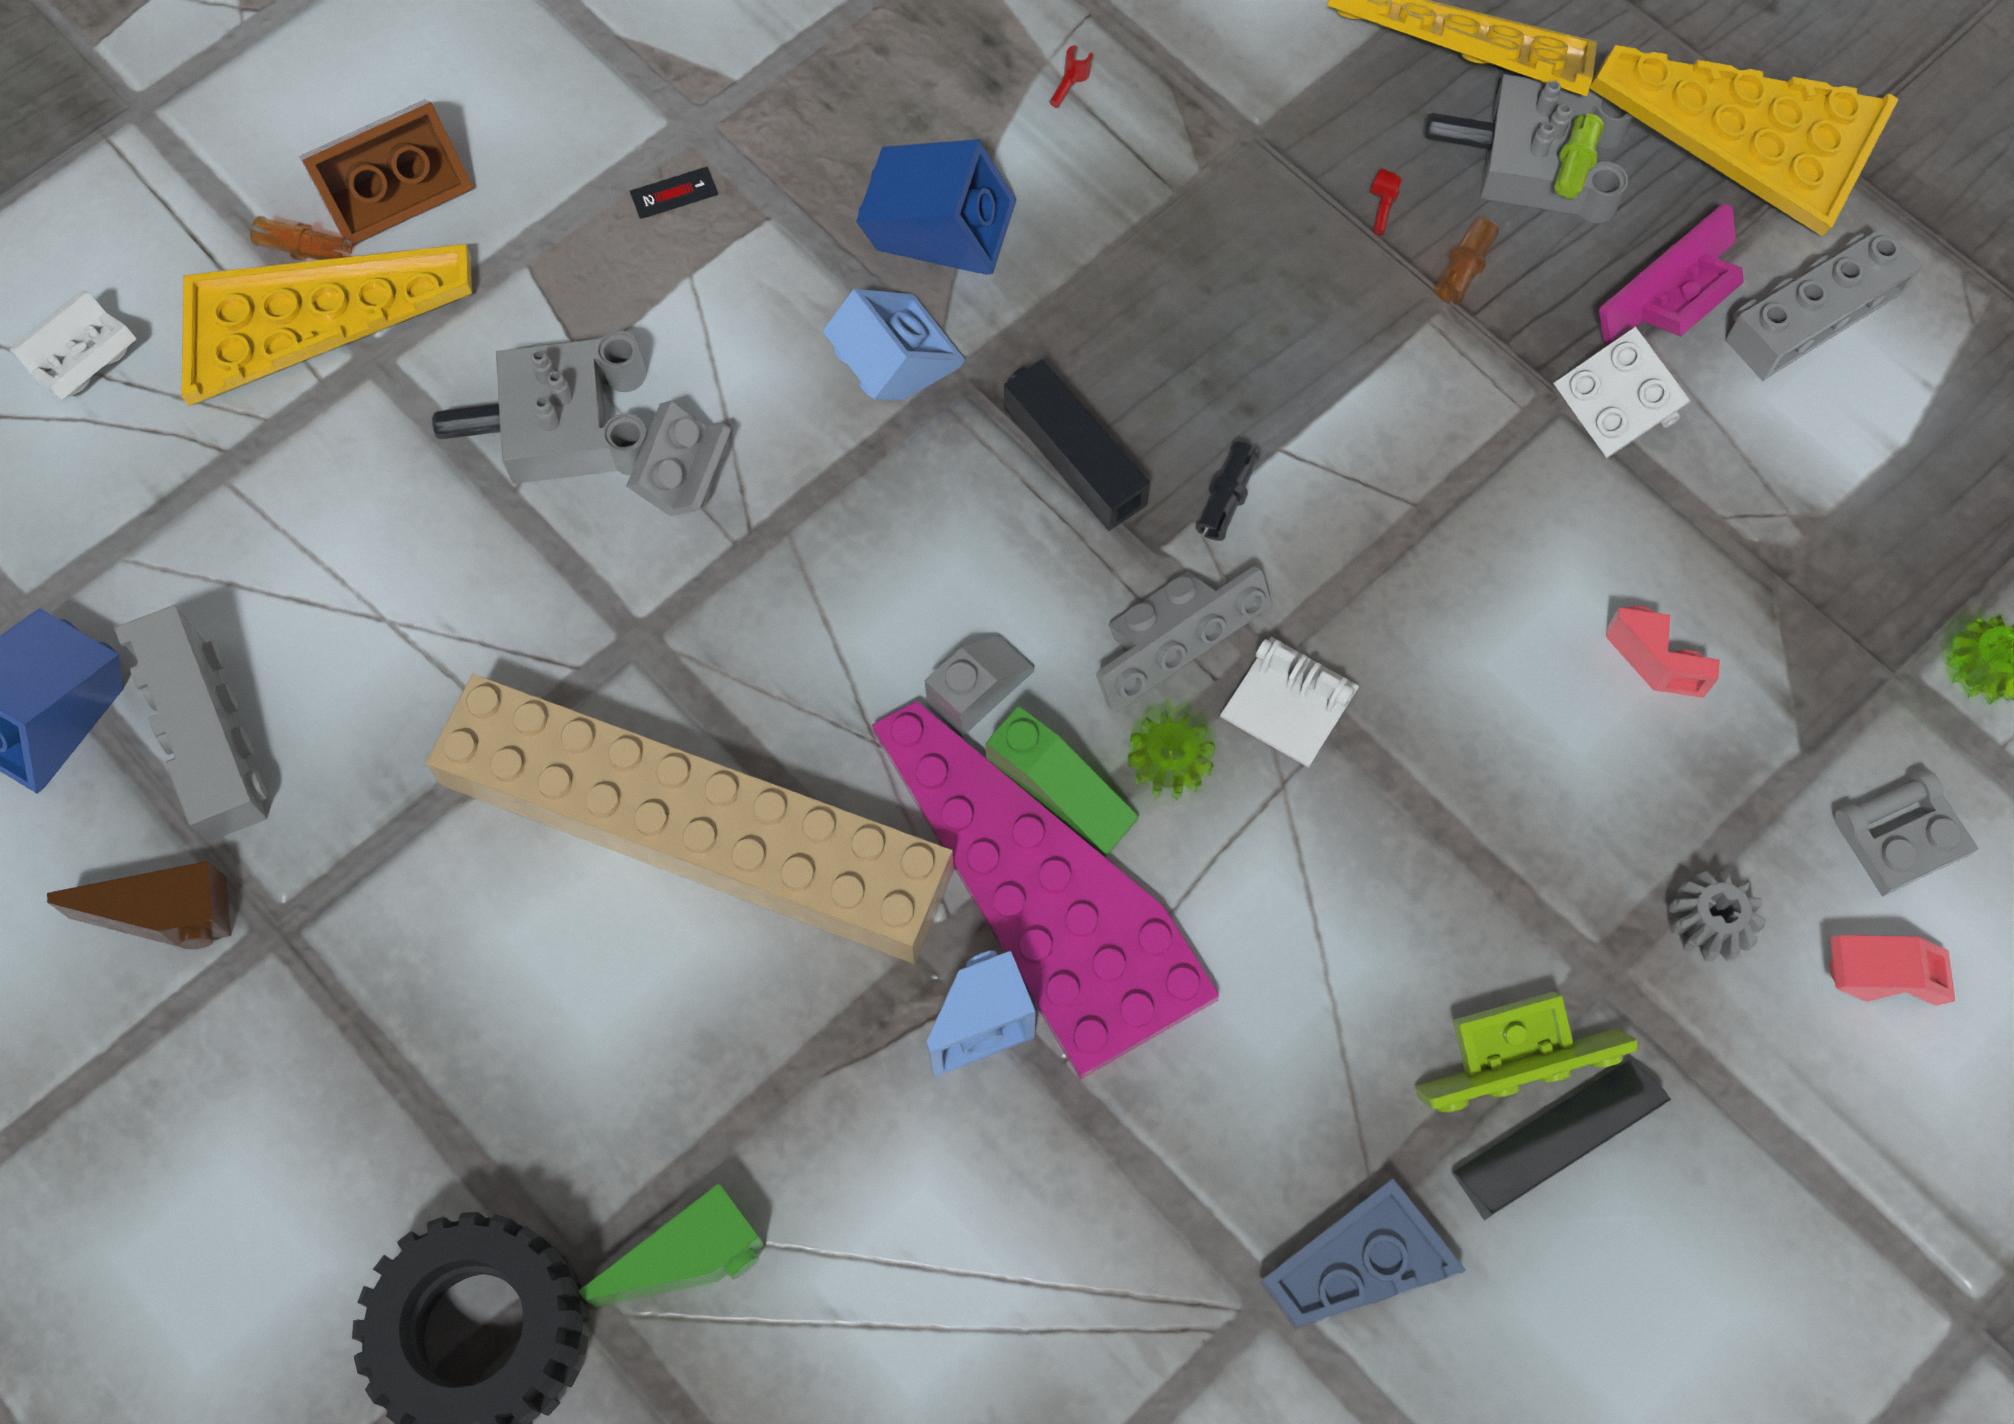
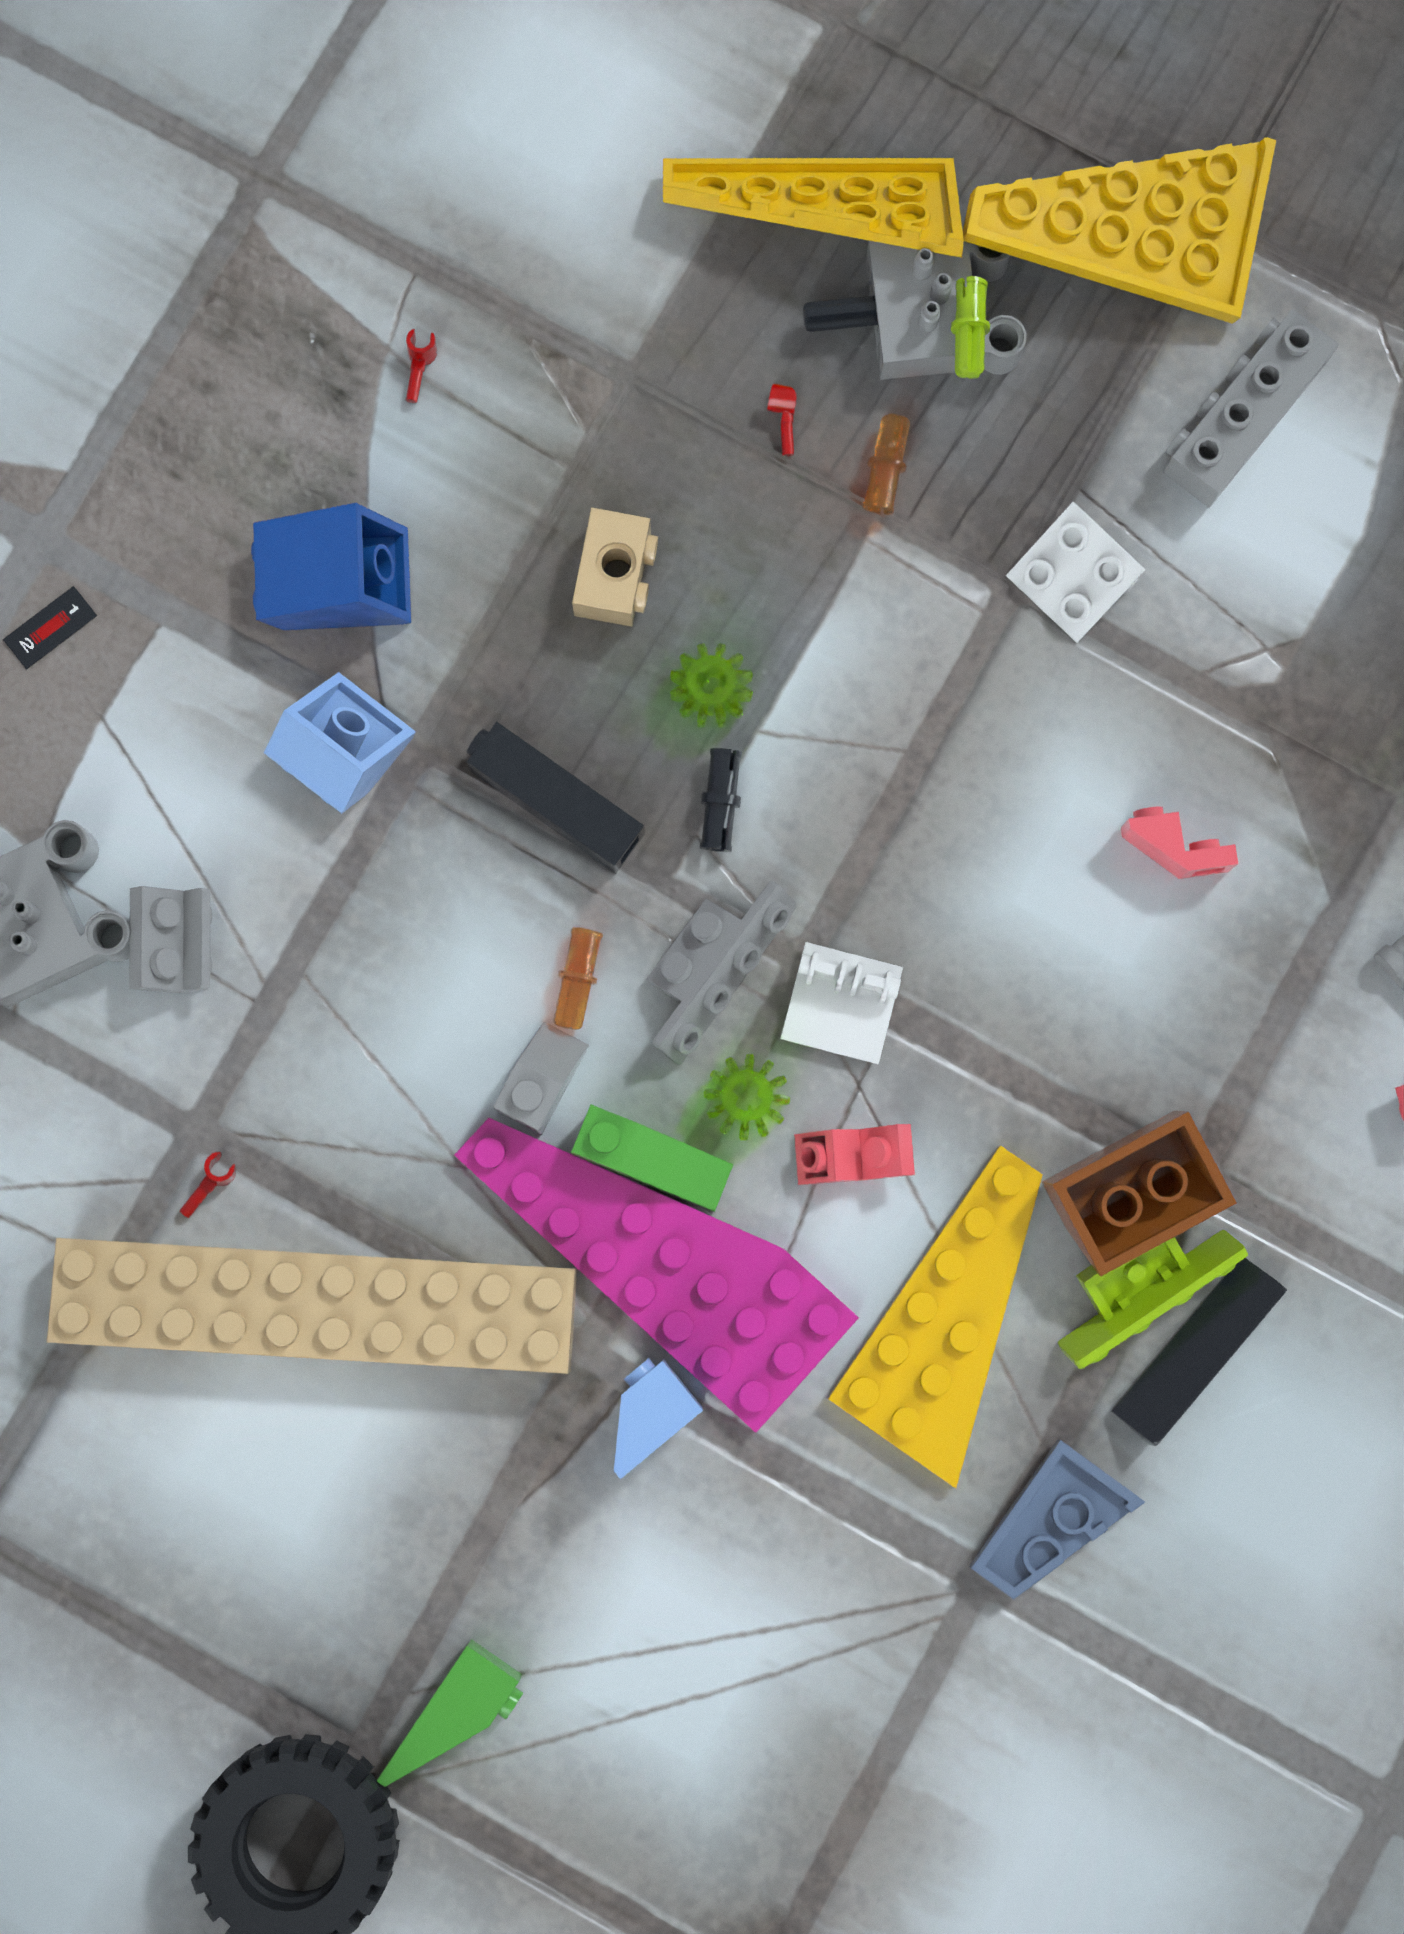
camera: 20 degrees left, 15 degrees up
(638, 681) = (208, 1184): none -> red hand
(1043, 604) = (577, 978): none -> clear orange axle
(1195, 249) = (611, 538): none -> tan brick
(1250, 391) = (700, 672): none -> clear neon green gear
(1252, 841) = (854, 1154): none -> coral slope
(1286, 1049) = (934, 1345): none -> yellow wing
(1540, 951) = (1139, 1192): none -> dark orange slope
(1679, 284) = (1106, 431): dark pink bracket -> none
(1722, 933) = (1288, 1077): light grey gear -> none

